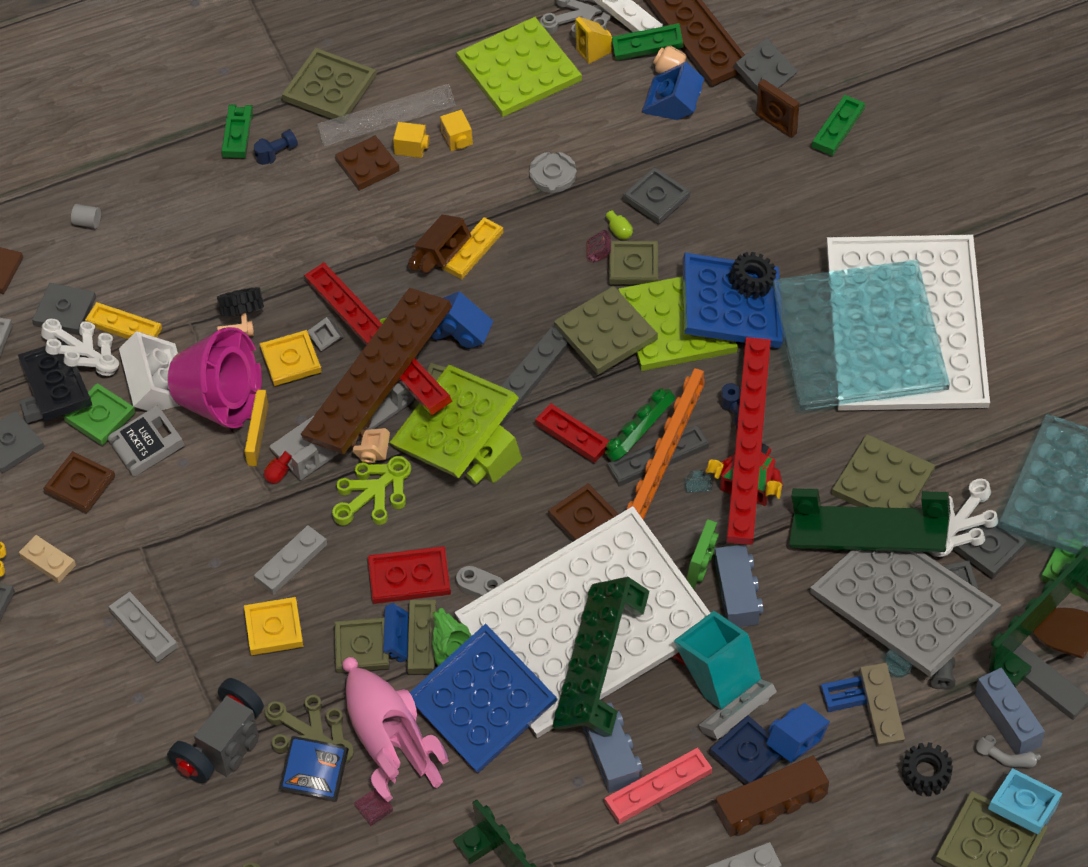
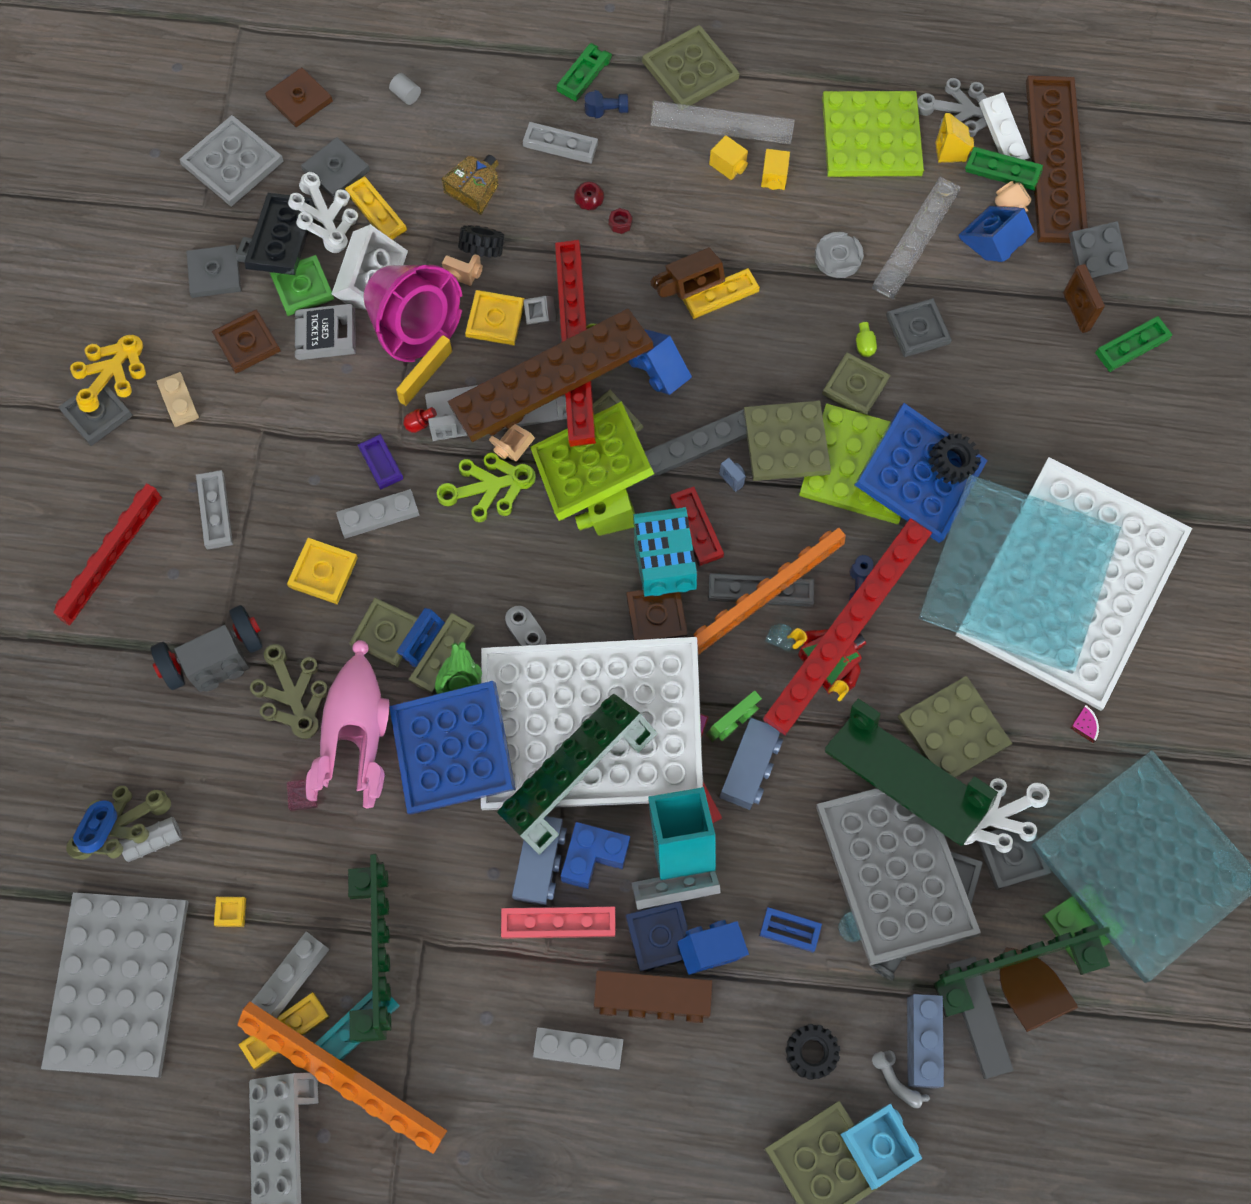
camera: 25 degrees right, 15 degrees up
(69, 718) = (103, 560): none -> red plate
(198, 262) = (472, 182): none -> clear yellow torso
(254, 195) = (560, 142): none -> light grey plate
(265, 518) = (380, 461): none -> dark purple tile
(307, 225) = (589, 202): none -> dark red plate
(314, 768) = (269, 731): slope -> none
(349, 232) = (620, 220): none -> dark red tile
(367, 162) = (678, 160): reddish brown plate -> none
(409, 575) = (469, 585): red tile -> none
(561, 460) = (664, 552): none -> teal slope
(576, 379) = (732, 474): none -> sand blue plate
(599, 246) = (834, 351): clear pink tile -> none
(609, 130) = (916, 238): none -> clear plate
(634, 429) = (757, 553): green plate -> none
(649, 714) = (592, 846): none -> blue brick
(882, 704) = (810, 962): dark tan plate -> none
(984, 422) = (1087, 724): none -> dark pink tile

